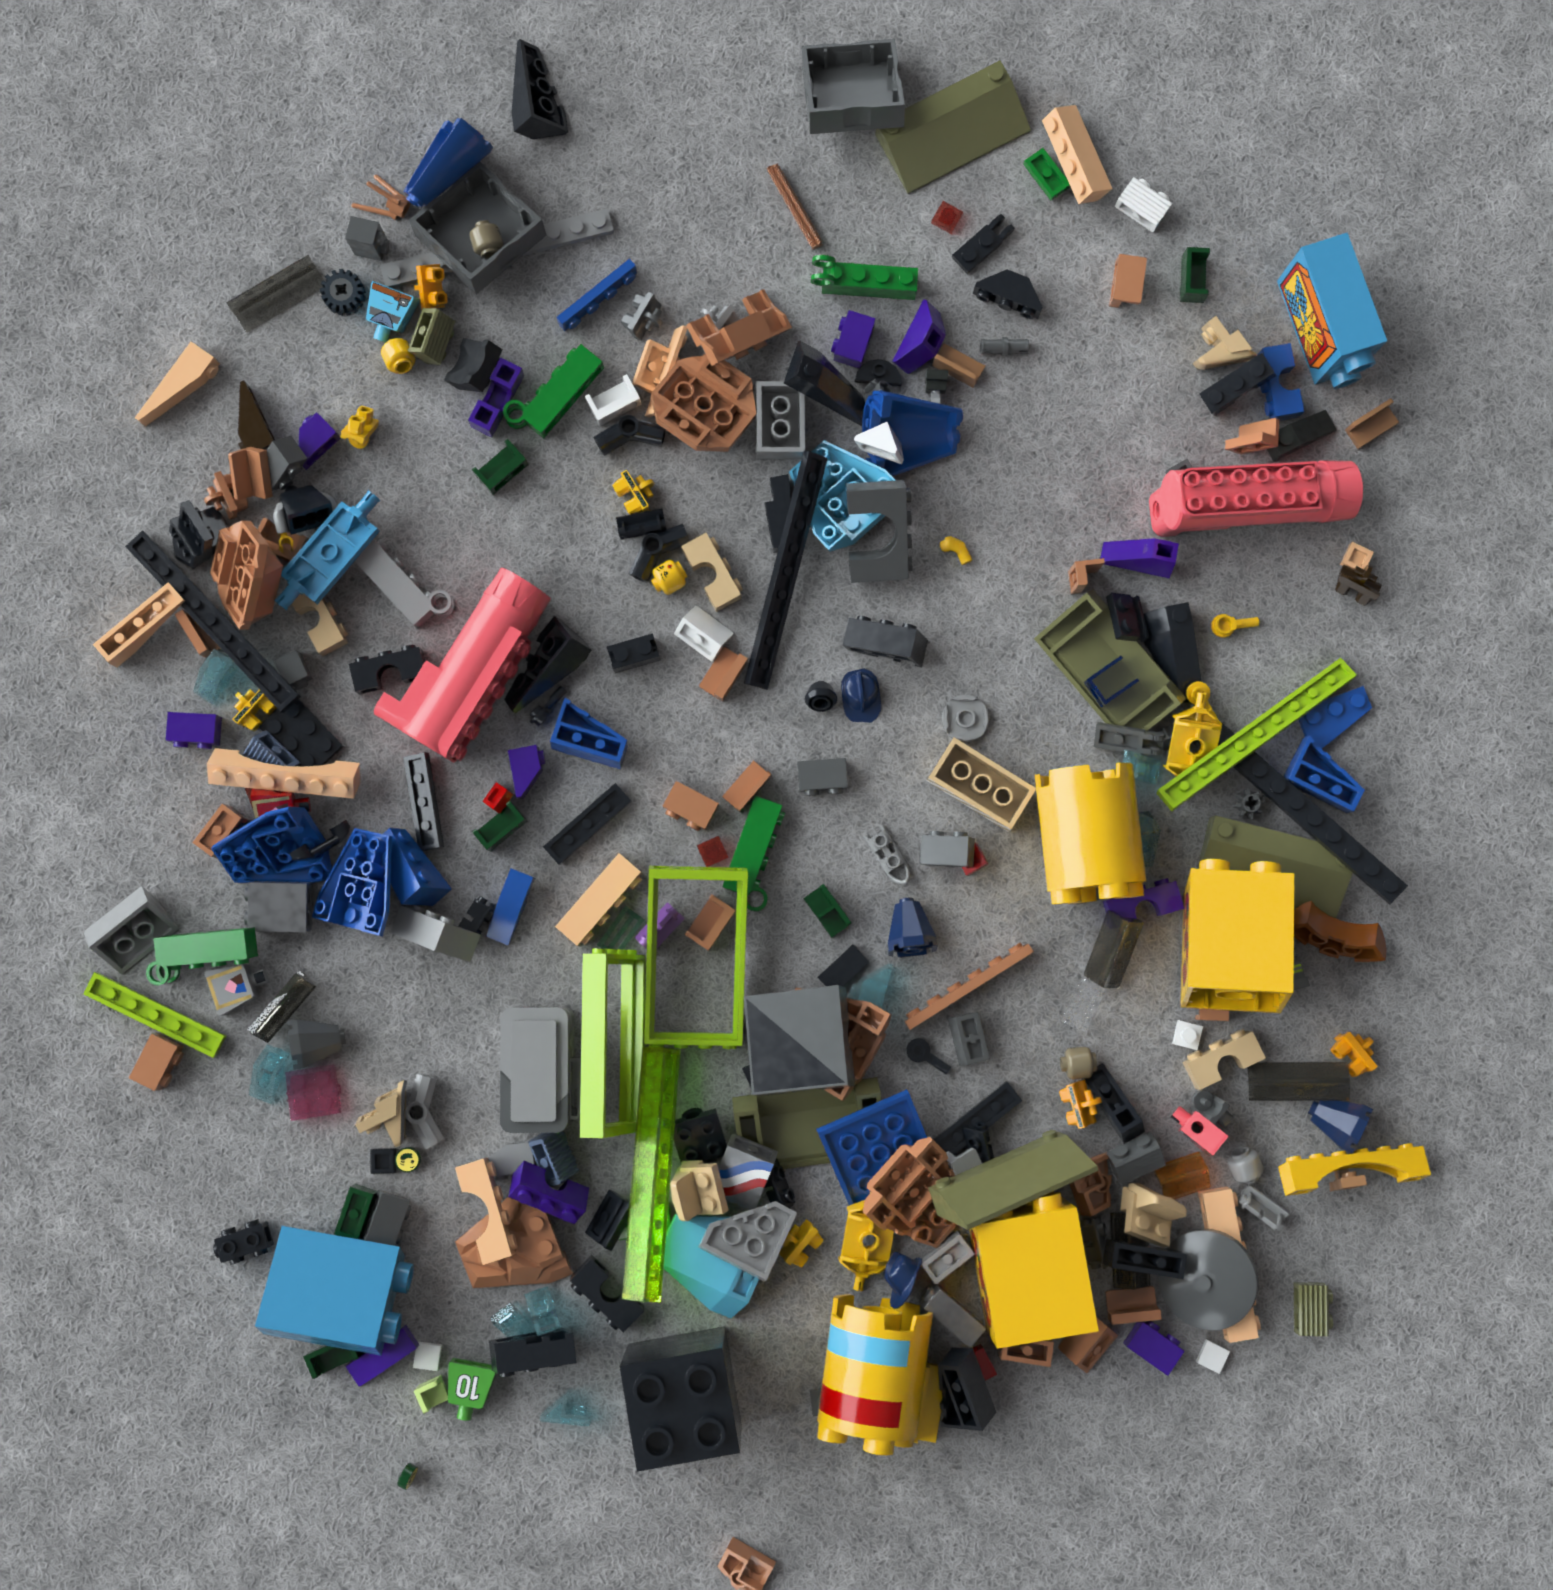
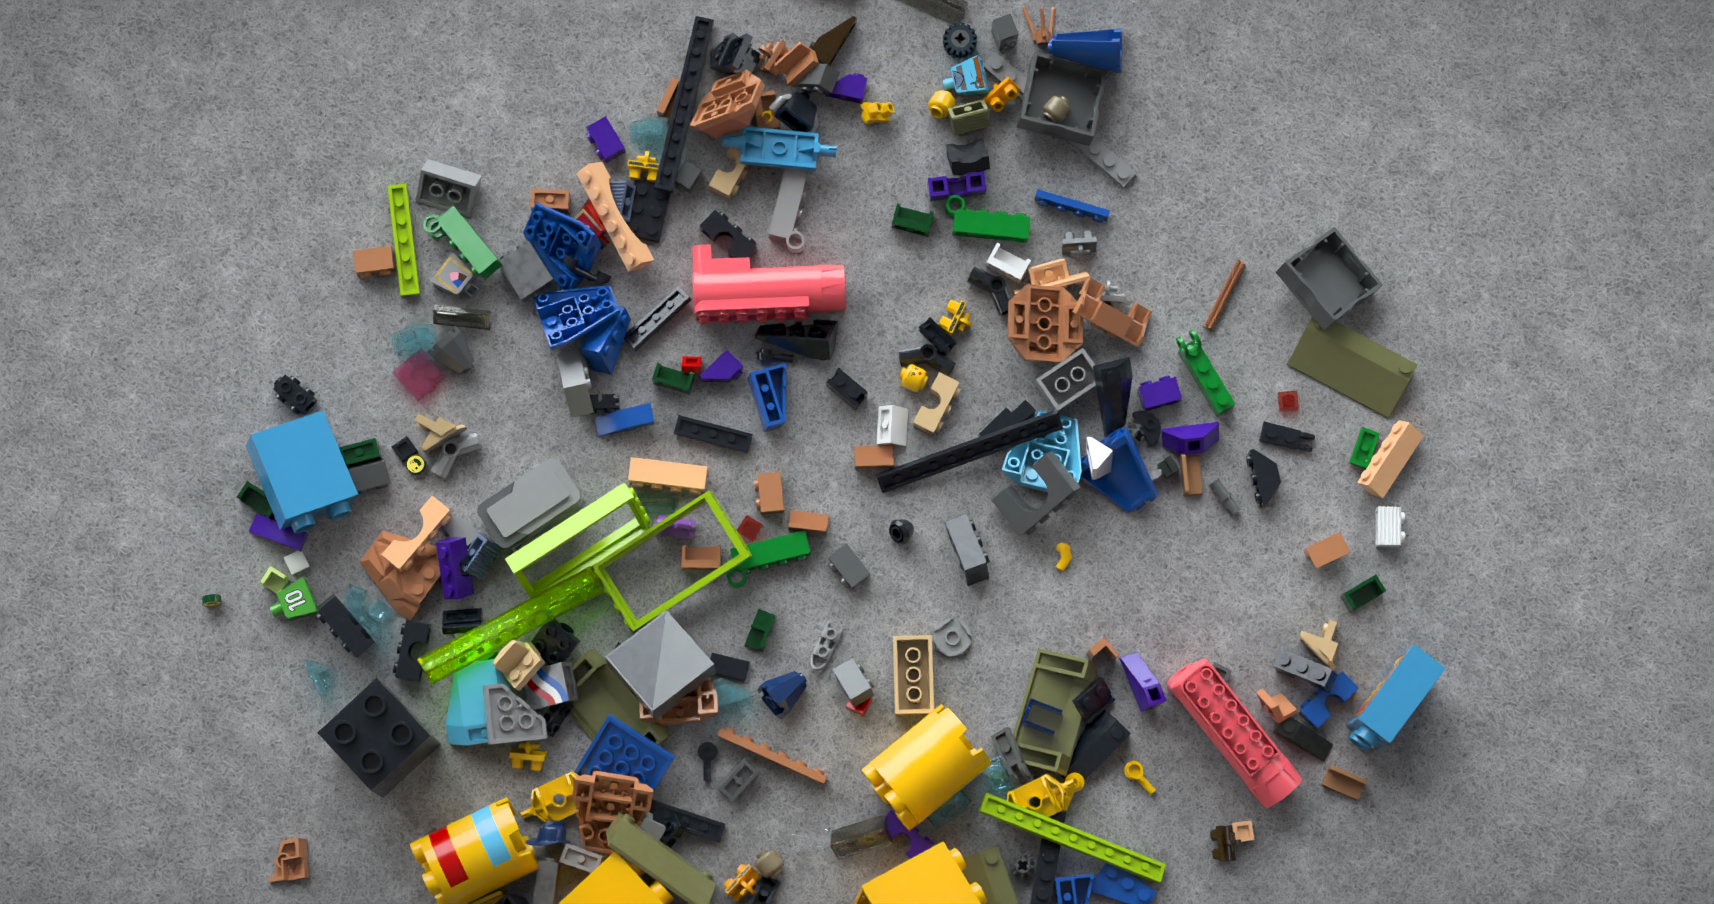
camera: 55 degrees right, 5 degrees down
(138, 626) = (649, 60): light nougat slope -> none
(533, 101) = (1171, 80): black wedge -> none
(861, 696) = (920, 558): dark blue piece -> none

